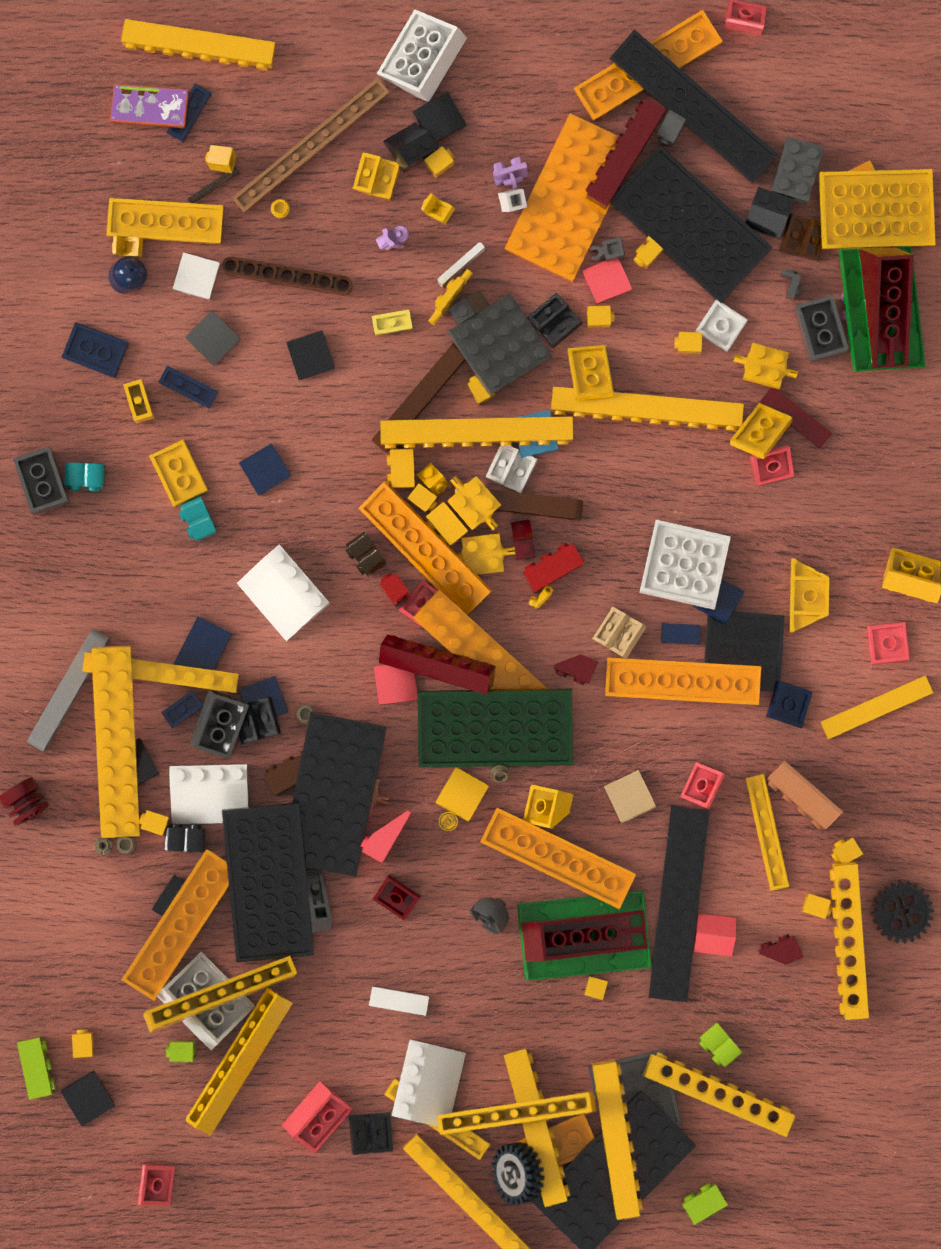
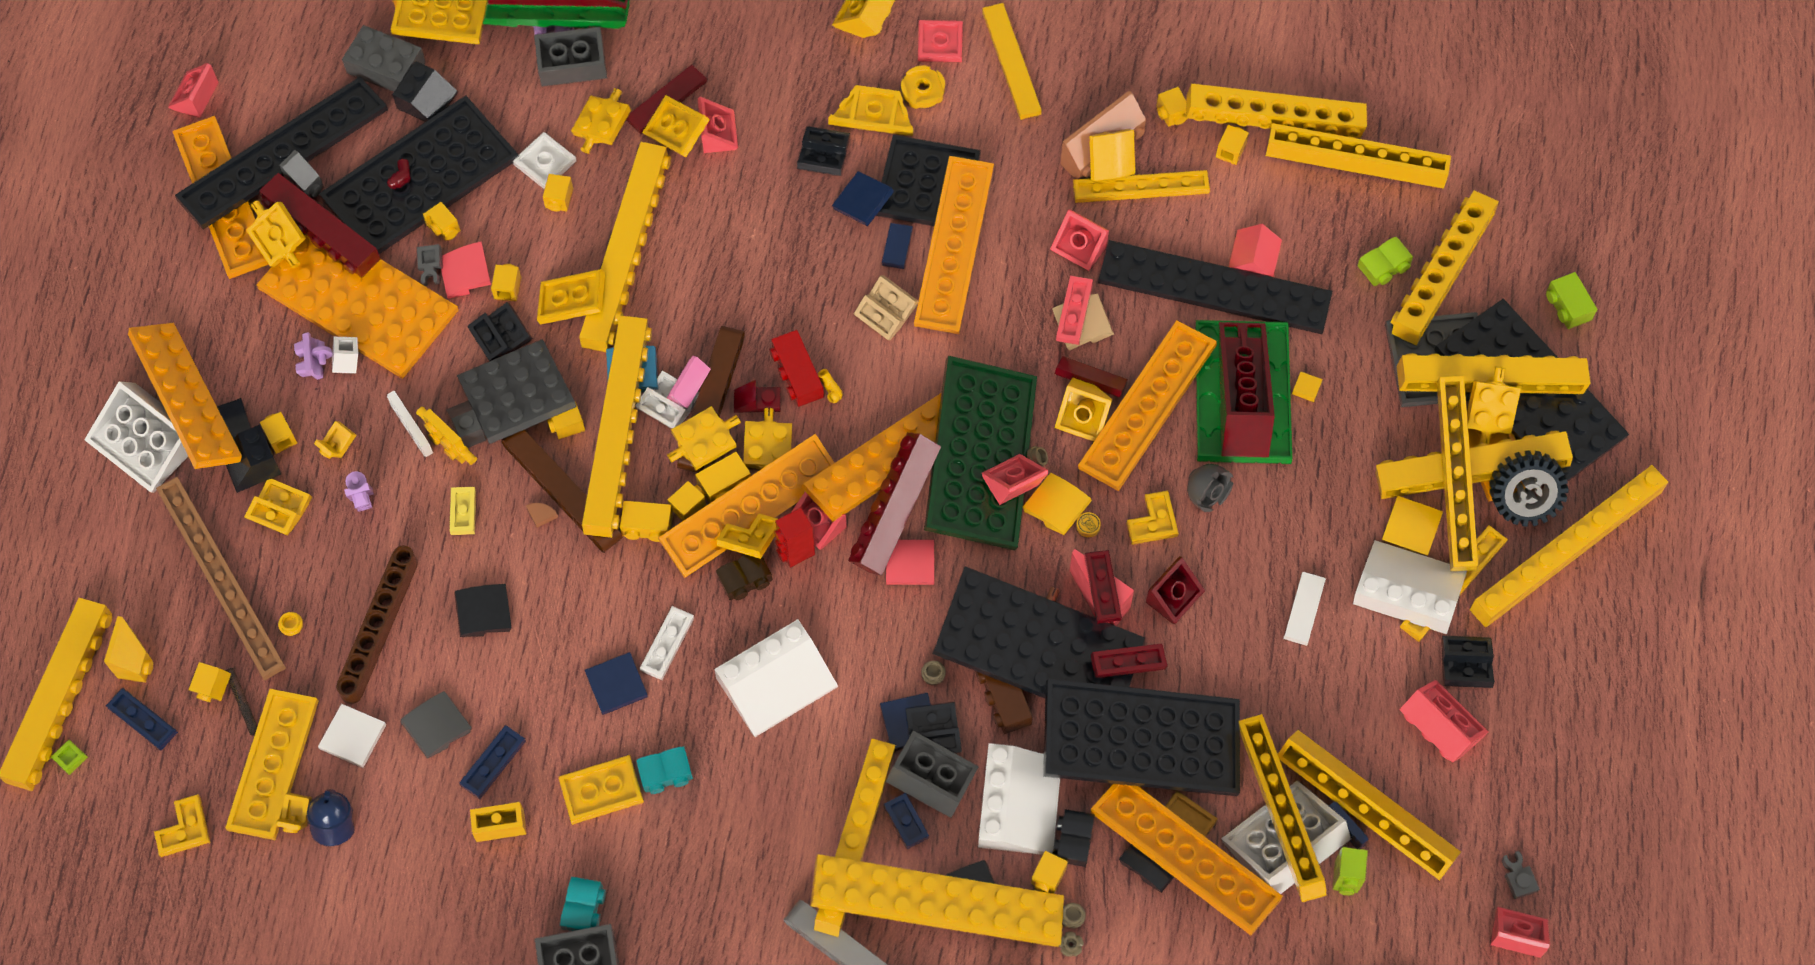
camera: 80 degrees left, 20 degrees down
(95, 350) = (419, 874): dark blue tile -> none
(106, 171) = (190, 829): none -> yellow tile
(149, 106) = (119, 764): tile -> none
(152, 66) = (69, 757): none -> lime tile
(198, 1183) = (1519, 879): none -> dark grey plate
(203, 645) = (826, 786): dark blue tile -> none
(216, 925) = (1191, 813): none -> pearl gold tile
(221, 1046) = (1358, 837): none -> dark blue tile
(235, 92) = (127, 655): none -> yellow slope
(303, 503) = (667, 643): none -> white tile
(318, 902) = (1183, 679): dark grey slope -> none
(328, 865) = (1128, 660): none -> dark red plate
(380, 838) = (1103, 586): none -> dark red tile
(390, 557) = (749, 541): none -> yellow plate
(399, 384) = (541, 513): none -> nougat tile
(433, 479) = (664, 487): yellow bracket -> none
(456, 81) = (184, 395): none -> light orange plate
(459, 879) = (1159, 523): none -> yellow tile
(474, 756) = (1013, 477): none -> coral slope
(481, 1082) = (1412, 525): none -> yellow slope
(524, 482) = (689, 382): none -> bright pink panel
(578, 667) = (921, 355): dark red slope -> none
(579, 809) = (1103, 380): none -> dark red tile
(584, 1139) = (1492, 406): none -> yellow plate
(609, 120) = (275, 234): none -> yellow plate
(633, 788) = (1074, 310): none -> coral plate
(683, 211) = (401, 177): none -> dark red arm
(685, 564) = (817, 225): white plate -> none
(763, 559) = (823, 151): none -> black slope
(783, 951) = (1281, 184): dark red slope -> none
(785, 804) = (1112, 155): none -> yellow slope
(789, 704) = (996, 143): dark blue tile -> none
(794, 288) = (511, 79): dark grey bracket -> none
(802, 238) = (463, 65): reddish brown slope -> none
(817, 1014) = (1358, 155): none -> yellow brick
(832, 644) = (923, 98): none -> yellow plate
(886, 917) = (1247, 61): black gear -> none

